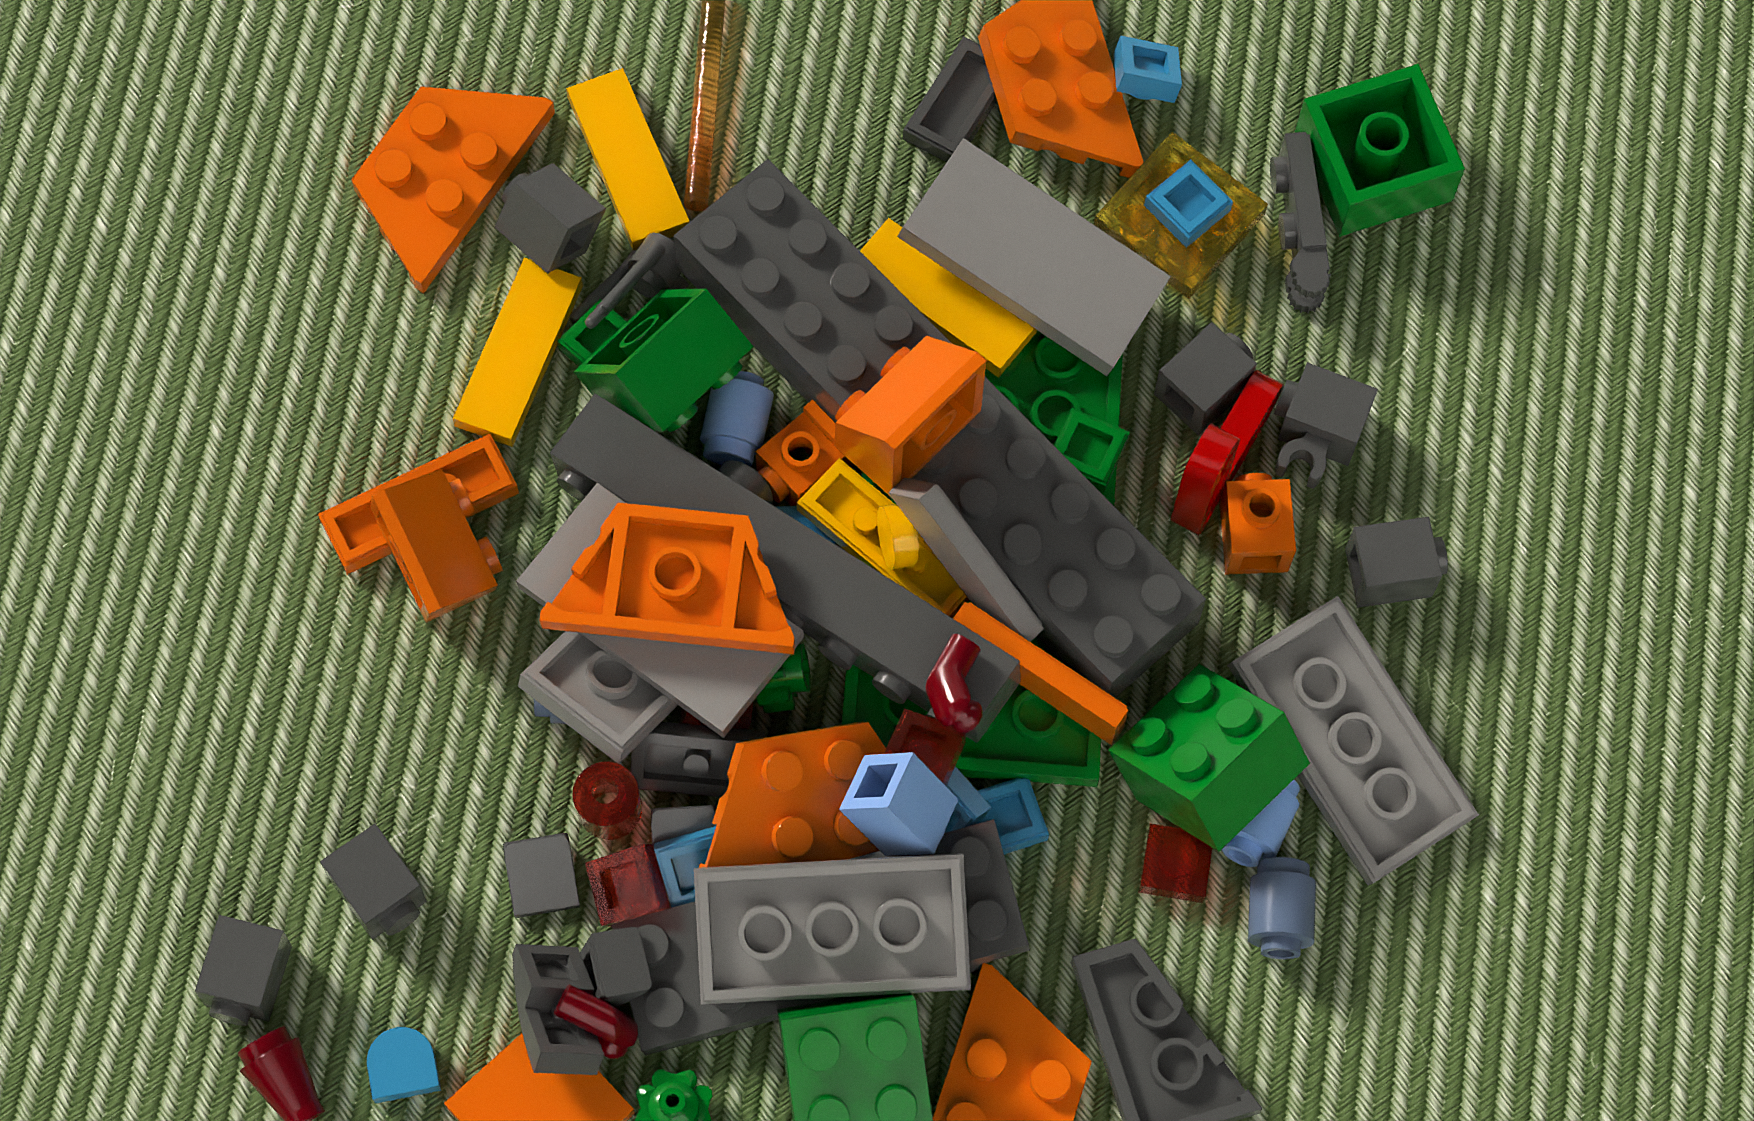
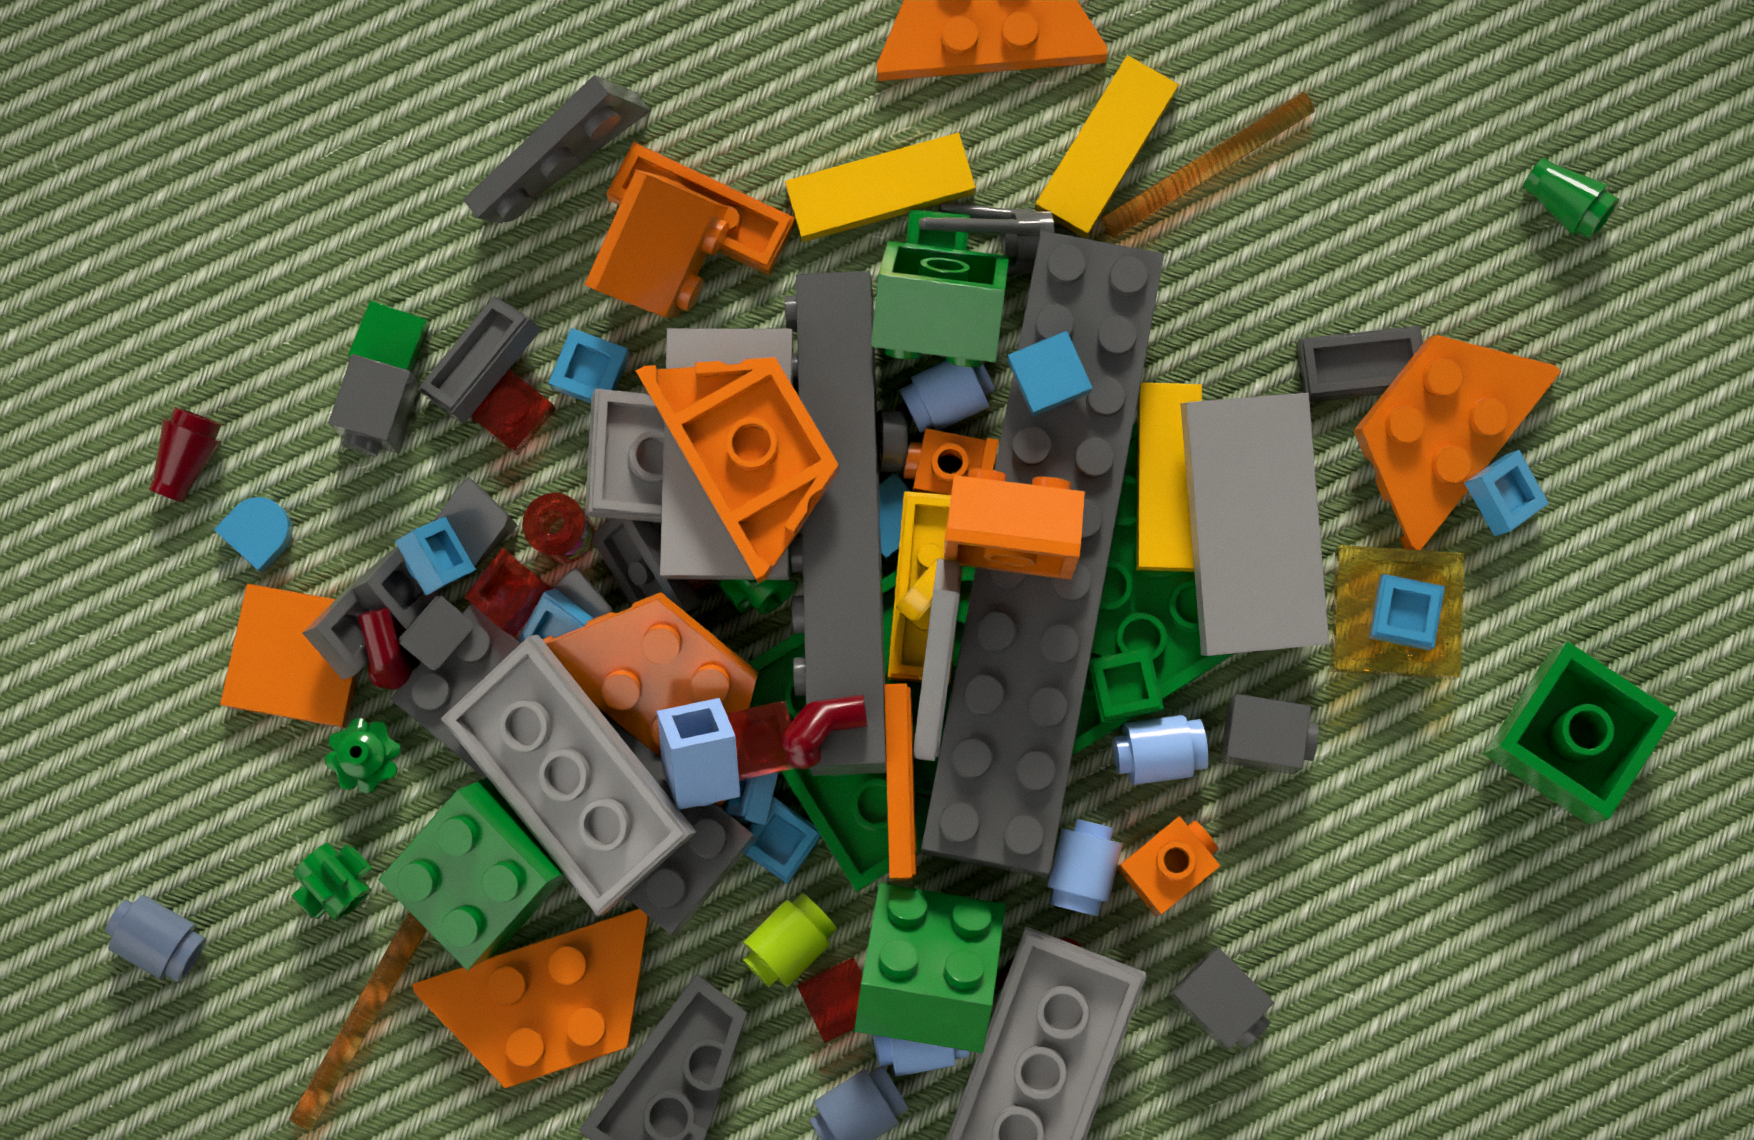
camera: 60 degrees right, 10 degrees up
(242, 970) = (239, 362): dark grey brick -> none
(278, 577) = (558, 146): none -> dark grey wing
(318, 832) = (390, 336): none -> green tile
(404, 770) = (479, 359): none -> dark grey tile
(468, 778) = (513, 412): none -> clear red plate
(485, 685) = (588, 365): none -> dark azure plate
(548, 923) = (435, 556): none -> dark azure plate
(549, 217) = (1002, 125): dark grey brick -> none
(801, 305) = (1049, 373): none -> dark azure tile
(1099, 865) = (788, 941): none -> lime brick
(1156, 464) = (1160, 749): none -> light blue brick
(1223, 452) = (1177, 795): red beam -> none
(1225, 592) = (1084, 867): none -> light blue brick
(1302, 224) = (1464, 717): dark grey hinge -> none
(1321, 419) = (1304, 853): dark grey brick -> none

